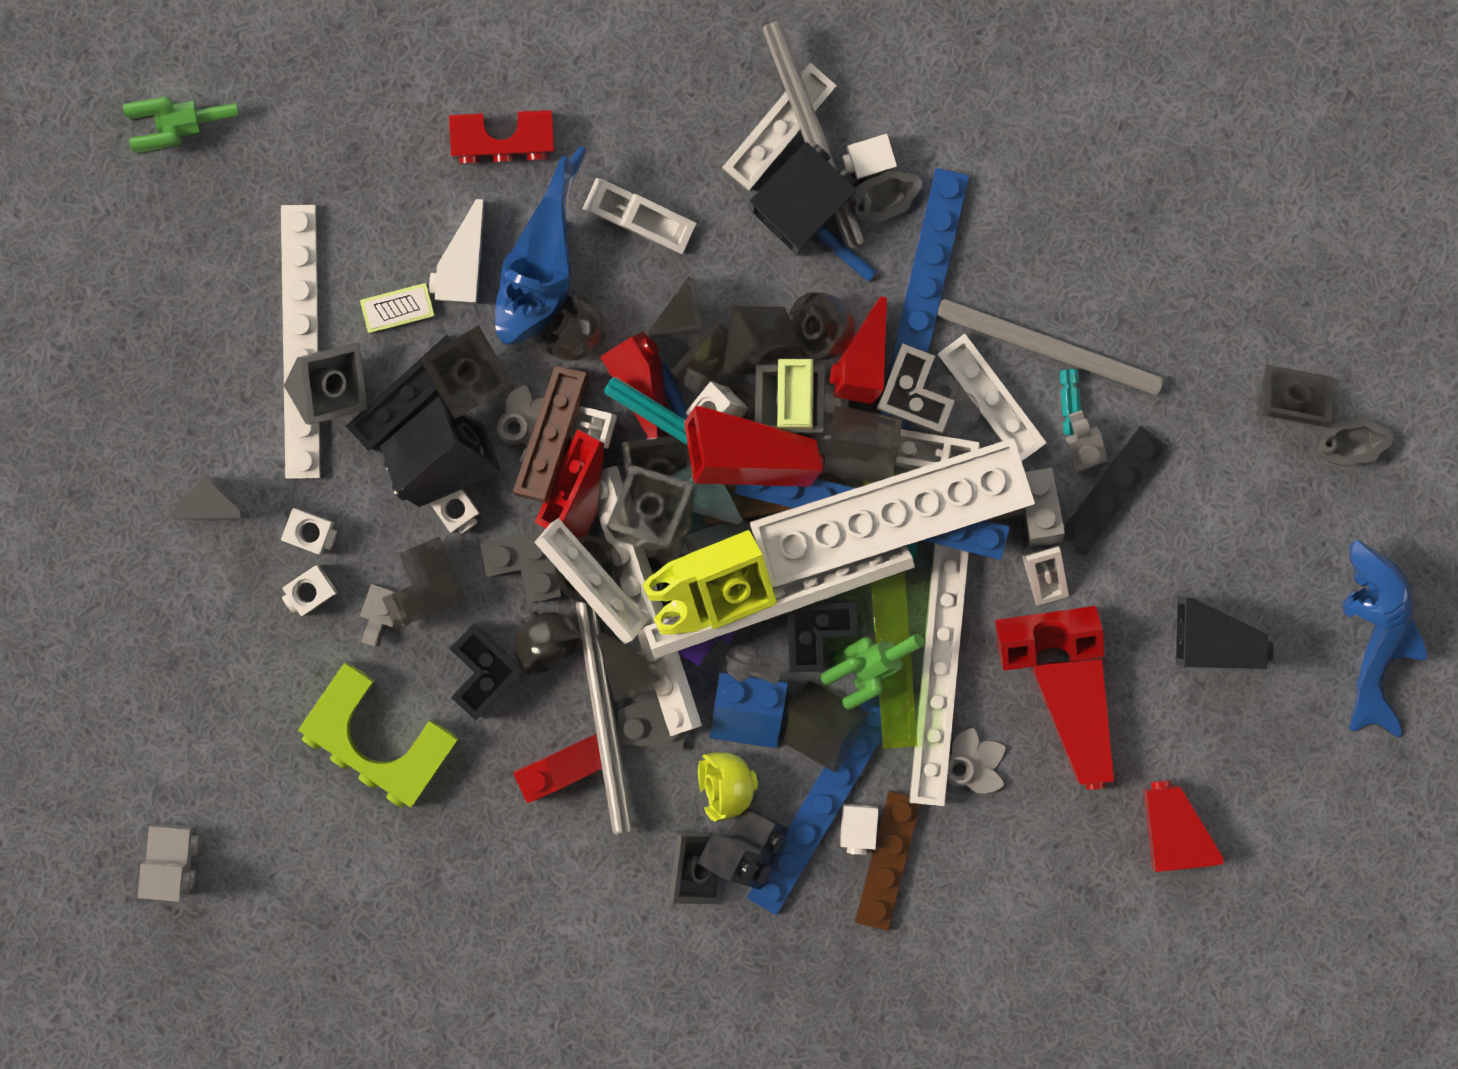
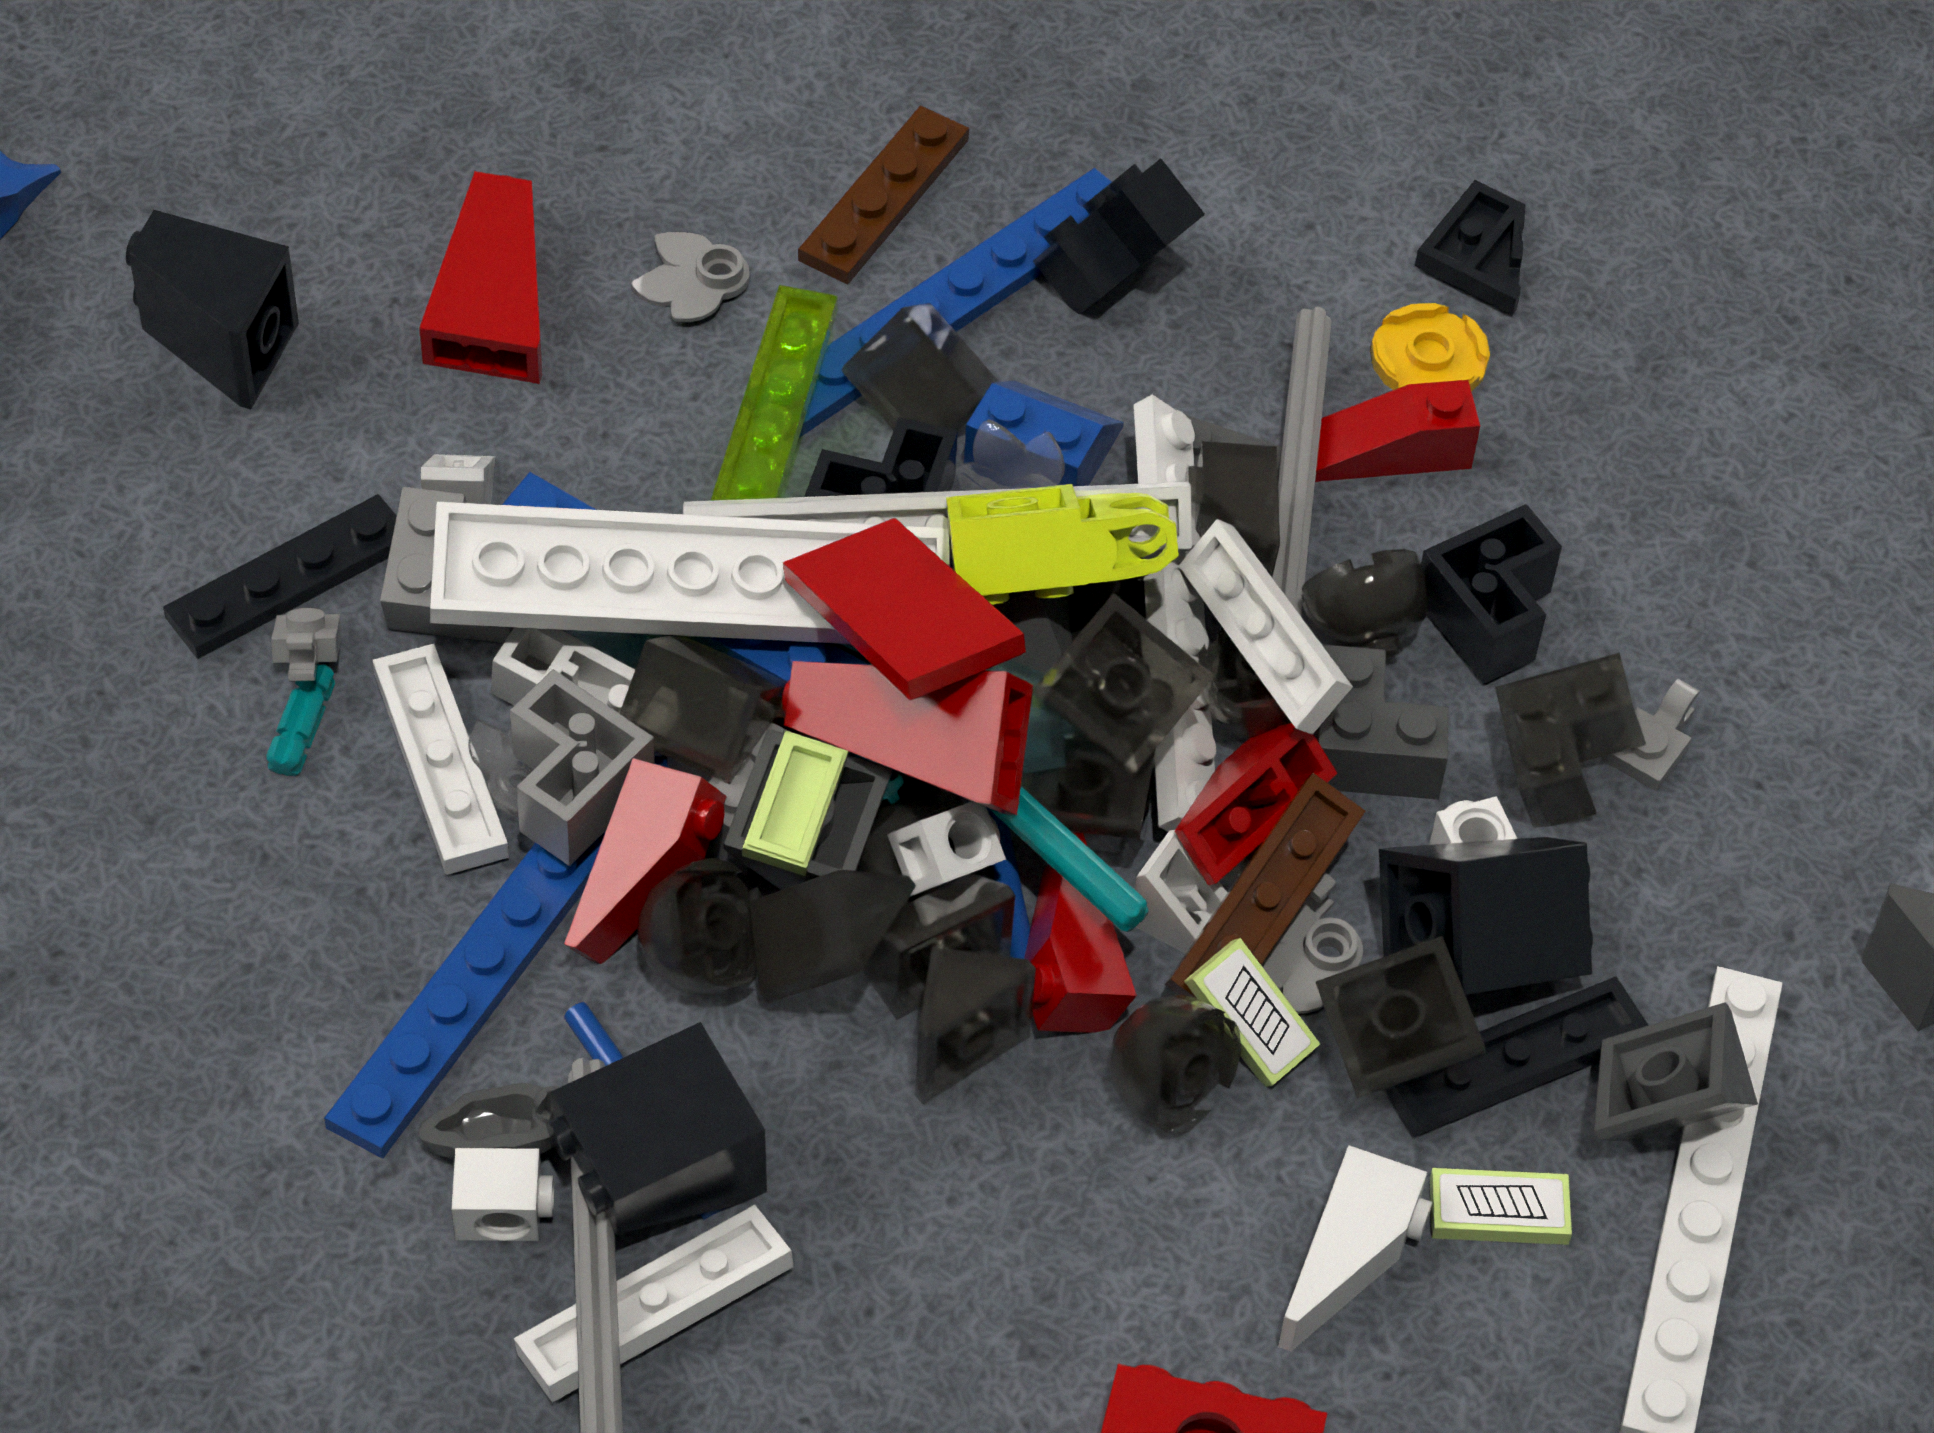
camera: 170 degrees left, 35 degrees down
(294, 527) = (1779, 876): white brick -> none
(323, 586) = (1775, 794): white brick -> none
(330, 728) = (1676, 493): lime arch -> none
(539, 266) = (1212, 1169): blue piece -> none
(541, 369) = (1270, 1028): none -> tile
(544, 927) = (1479, 246): none -> black wing
(559, 832) = (1456, 353): none -> yellow tile
(639, 215) = (987, 1227): white slope -> none
(689, 880) = (1210, 257): dark grey slope -> none
(727, 785) = (1114, 328): neon yellow cylinder -> none
(772, 504) = (904, 608): none -> red tile
(858, 828) = (915, 235): white brick -> none
(870, 664) = (814, 398): bright green plant -> none
(938, 675) = (712, 371): white plate -> none
(1050, 347) = (301, 811): light grey axle -> none
(1073, 630) = (443, 387): red arch -> none
(1175, 830) = (405, 101): red slope -> none

